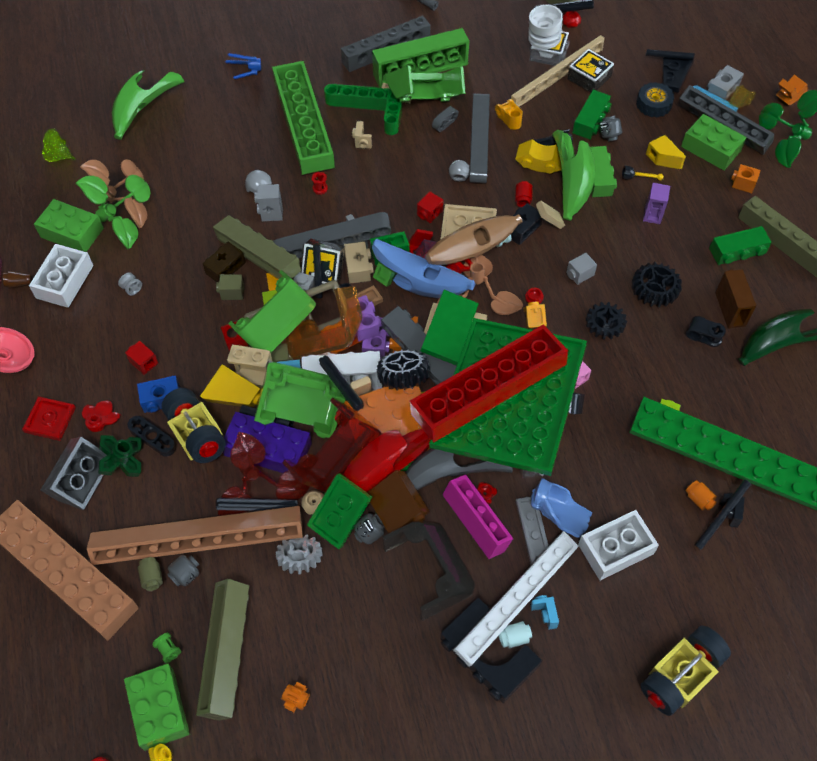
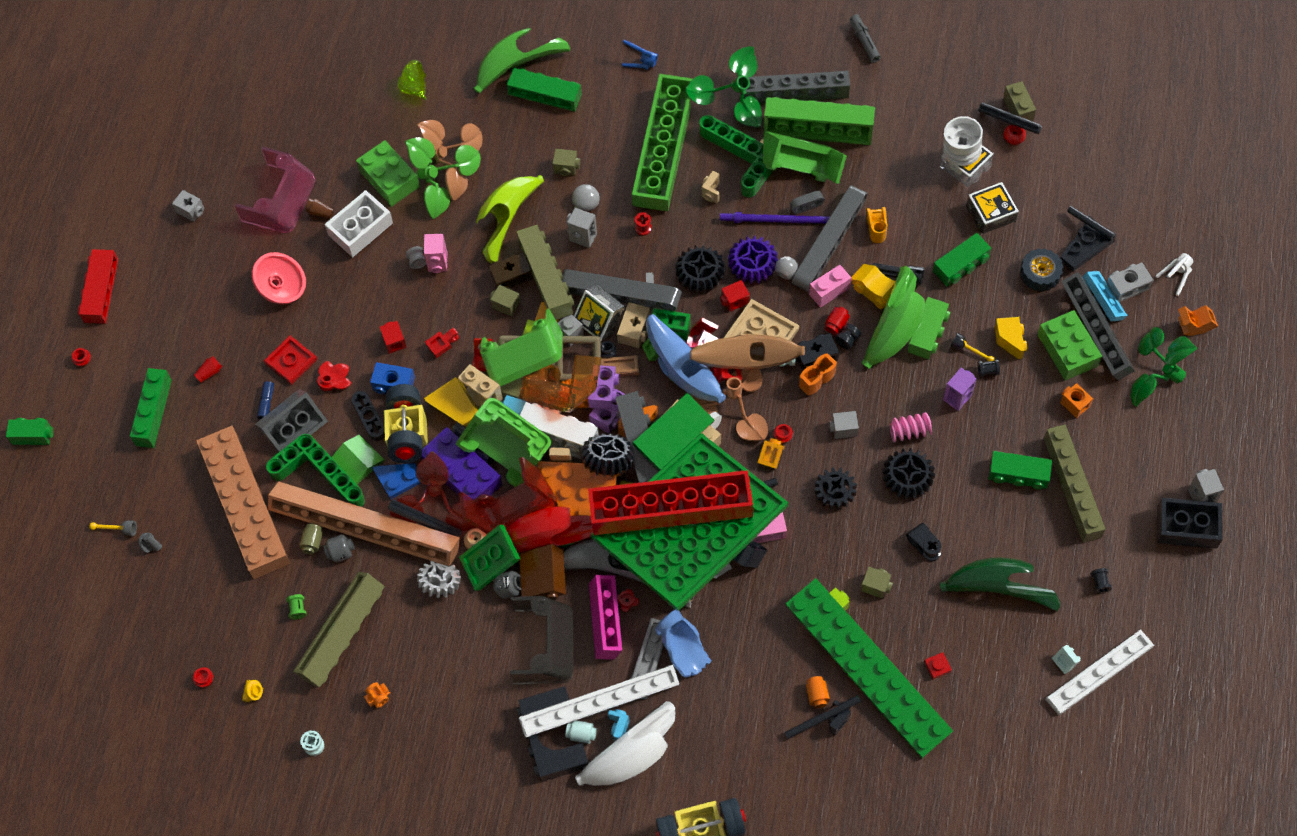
camera: 30 degrees right, 5 degrees up
(40, 462) = (266, 397): none -> dark blue piece
(120, 455) = (333, 422): dark green plant -> none
(126, 501) = (321, 466): none -> green beam
(147, 271) = (435, 252): none -> bright pink brick
(156, 707) = (267, 650): bright green brick -> none
(159, 480) = (357, 458): none -> bright green slope
(177, 115) = (544, 89): none -> green brick
(186, 211) = (503, 205): none -> lime piece
(190, 345) = (440, 343): none -> red plate
(209, 479) = (397, 478): none -> blue wing
(226, 161) = (565, 162): none -> olive brick
(317, 267) = (588, 317): black bar -> none
(337, 36) = (745, 65): none -> green plant
(341, 383) = (543, 443): black axle -> none
(388, 197) = (690, 263): none -> black gear
(396, 150) = (738, 217): none -> dark purple bar
(428, 170) = (745, 267): none -> dark purple gear
(502, 170) = (830, 286): none -> bright pink brick
(536, 238) = (817, 374): none -> orange brick
(540, 195) = (848, 336): none -> black wheel
(550, 214) = (846, 355): tan tile -> none
(554, 73) = (952, 195): tan tile -> none
(576, 631) = (632, 751): none -> white piece
(610, 128) = (969, 284): dark grey head -> none
(618, 545) = (712, 699): white brick -> none
(635, 248) = (910, 426): none -> bright pink piece
(667, 179) = (988, 368): none -> black bush
(689, 381) = (877, 582): none -> olive brick
(735, 298) = (971, 522): reddish brown brick -> none
(741, 97) = (1135, 305): clear yellow piece -> none
(752, 59) = (1180, 265): none -> white plant
(781, 427) = (937, 665): none -> red plate

